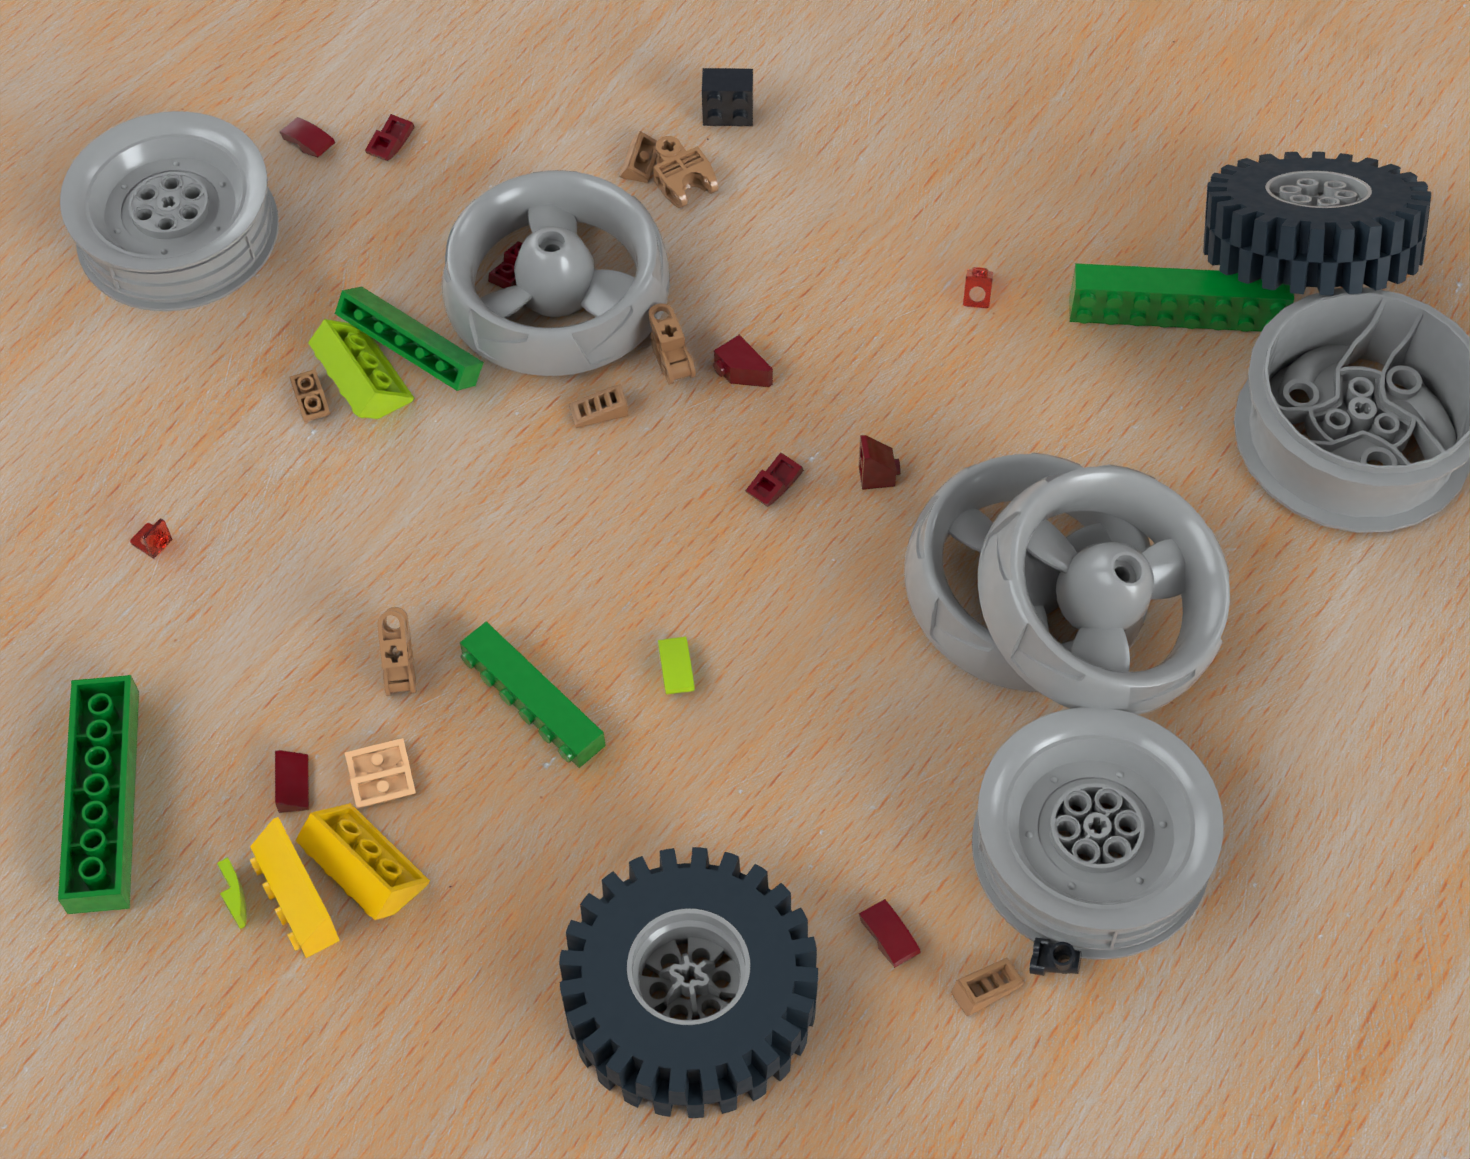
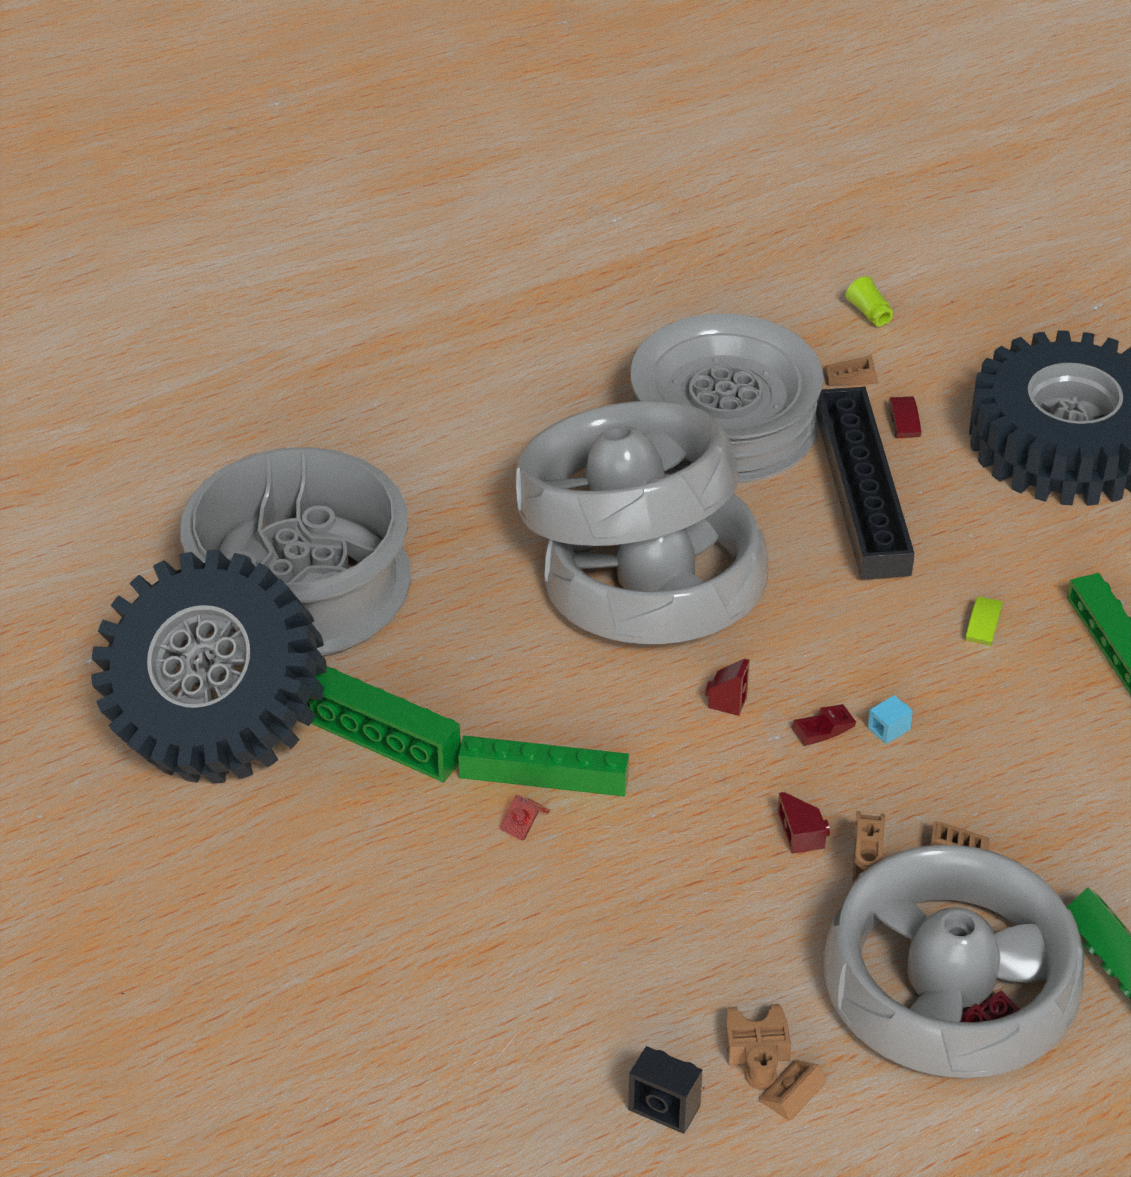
camera: 155 degrees left, 15 degrees down
(714, 502) = (890, 719): none -> medium azure brick
(886, 792) = (864, 484): none -> black brick
(991, 326) = (543, 765): none -> green brick
(1026, 1117) = (869, 301): none -> lime plant

